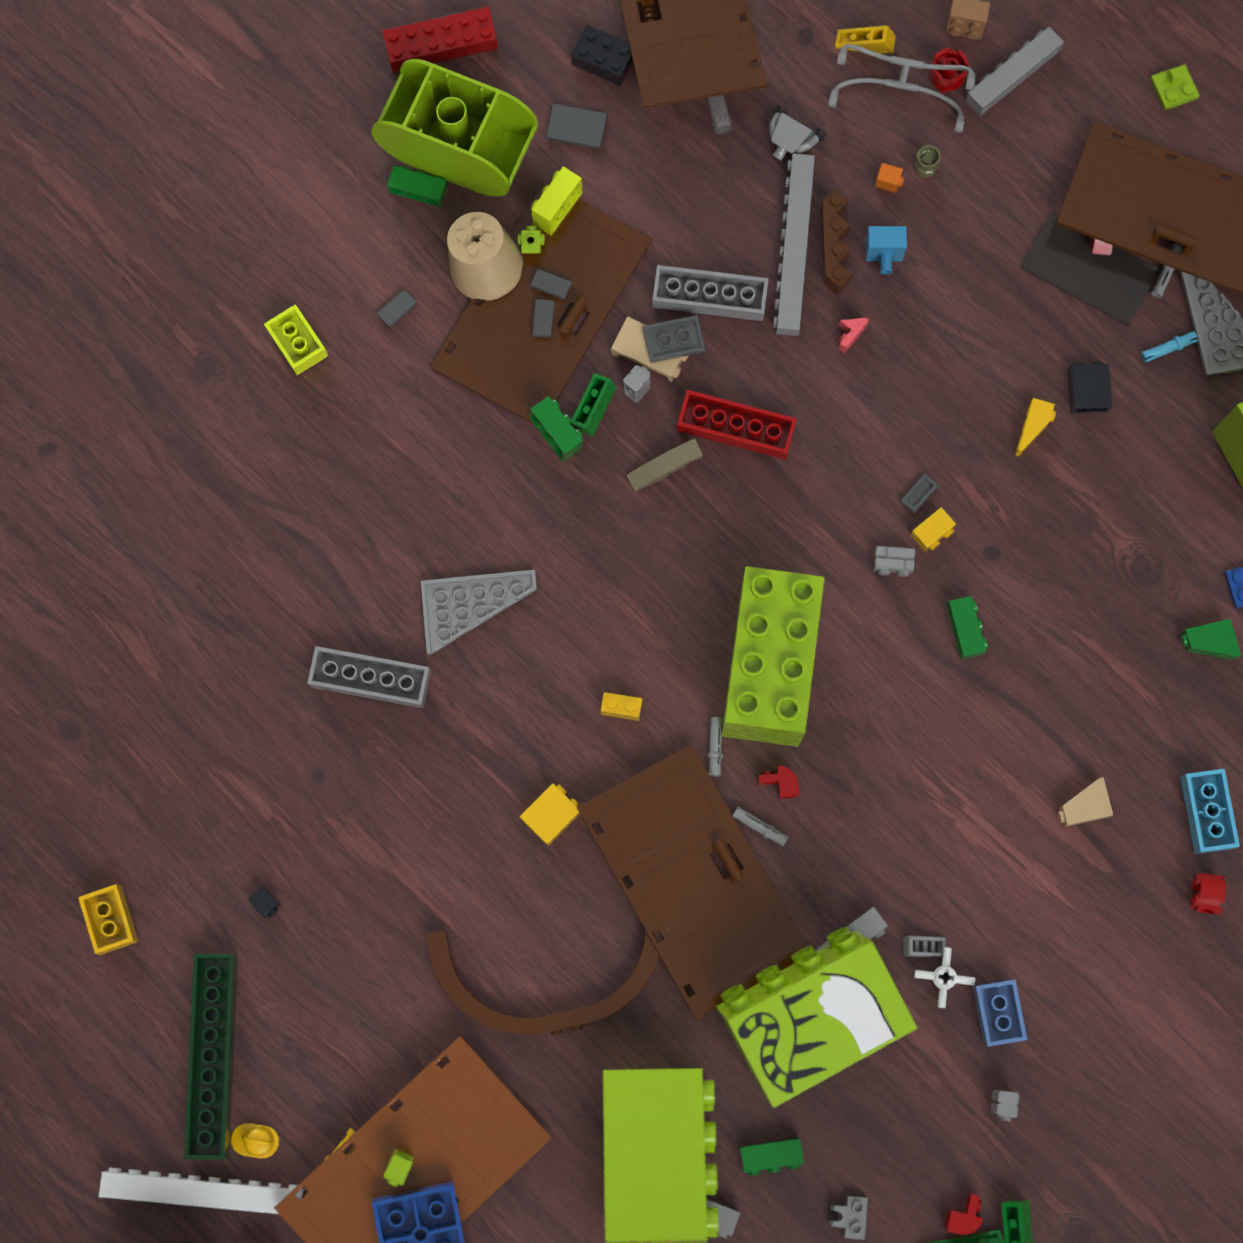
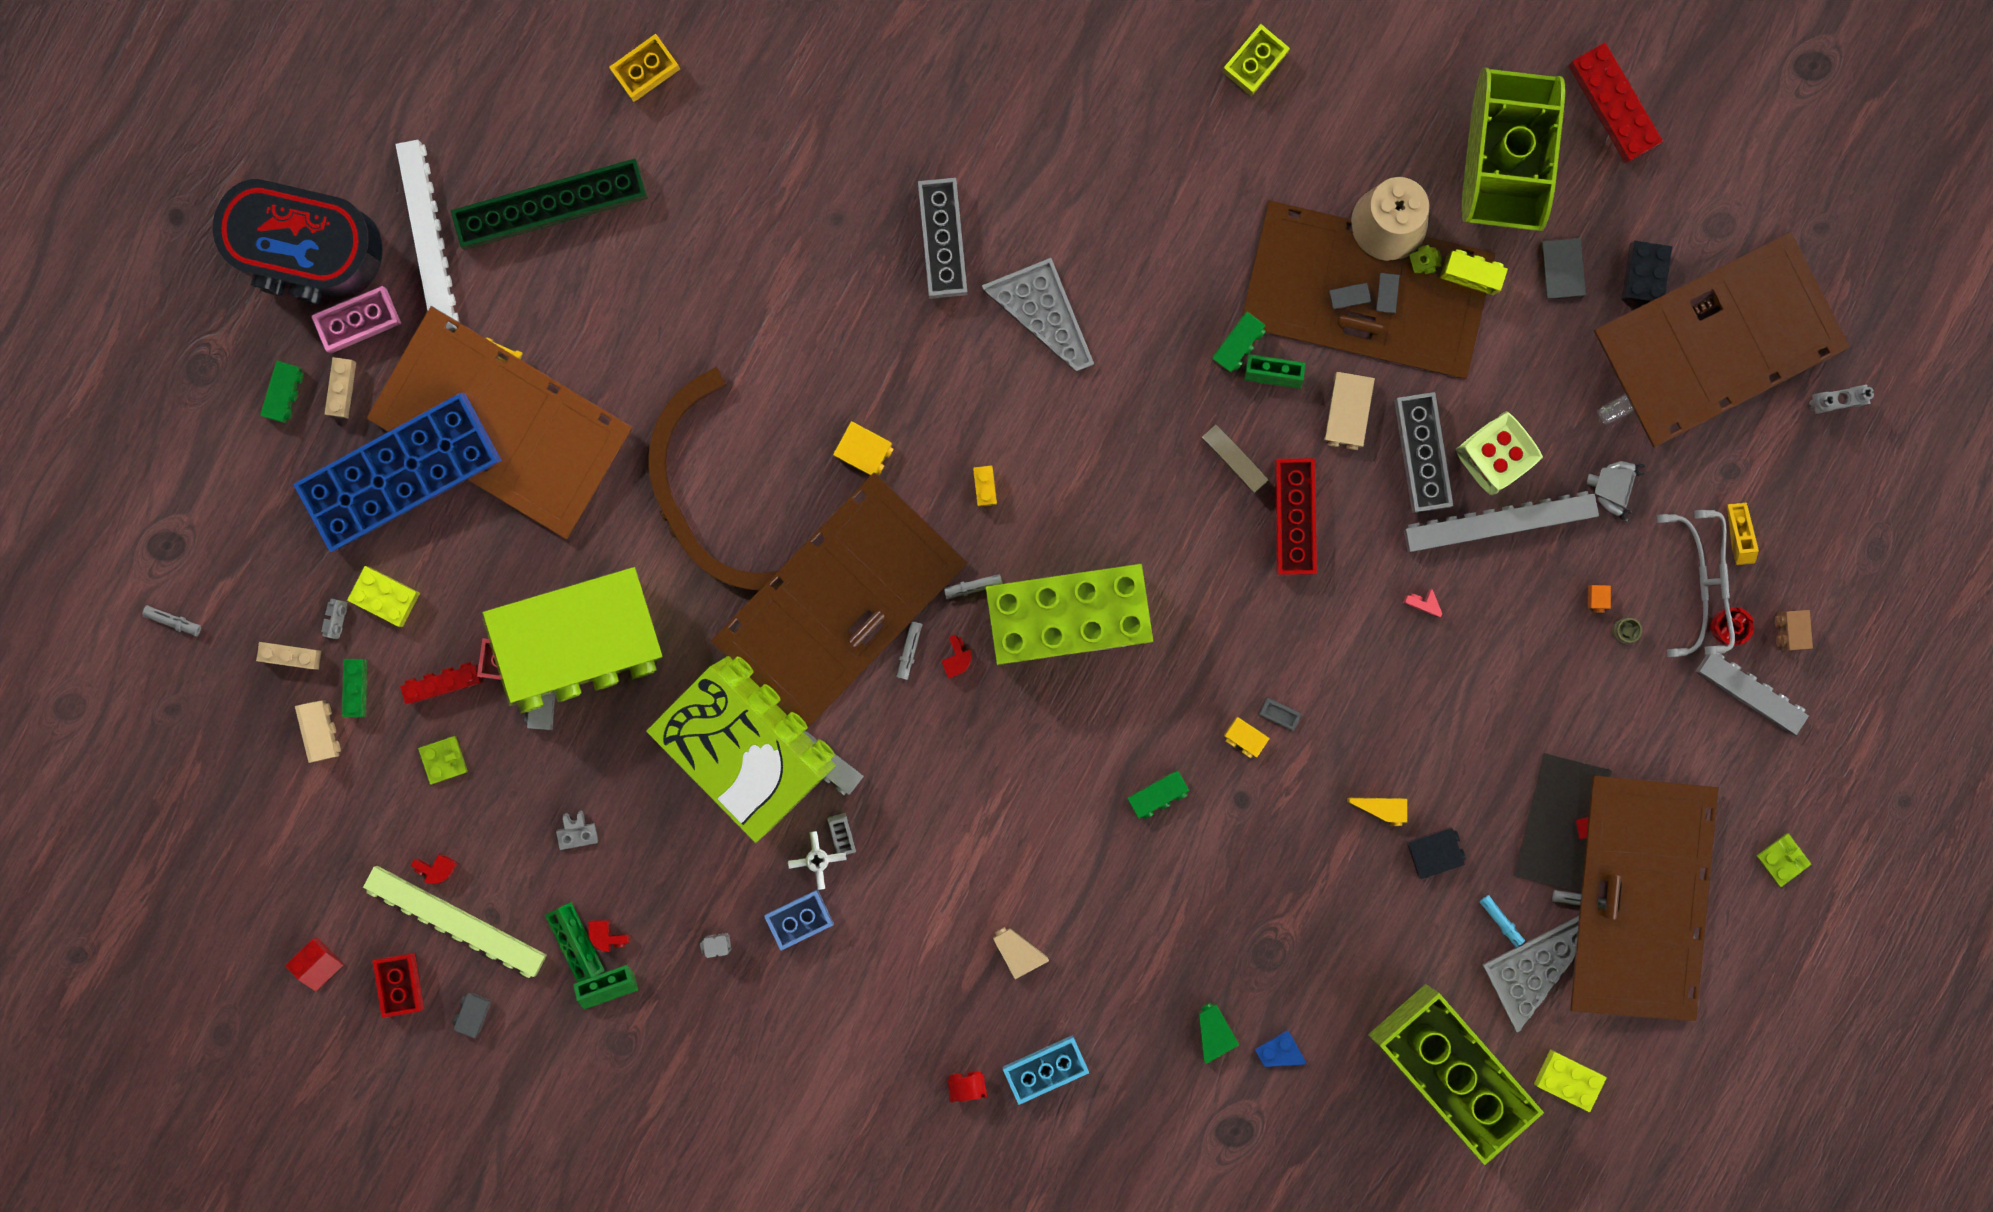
camera: 65 degrees right, 10 degrees up
(255, 1140) = (486, 269): yellow piece -> none
(264, 902) = (703, 208): black brick -> none
(396, 308) = (1319, 148): dark grey tile -> none
(398, 1167) = (497, 407): lime brick -> none
(417, 186) = (1452, 129): green brick -> none
(636, 383) = (1308, 408): light grey brick -> none
(673, 339) = (1363, 430): dark grey tile -> none
(731, 223) = (1499, 453): none -> yellowish green piece
(771, 1156) = (609, 745): green brick -> none
(834, 250) = (1524, 557): reddish brown brick -> none
(885, 245) = (1523, 612): dark azure brick -> none
(894, 560) = (1204, 707): light grey brick -> none

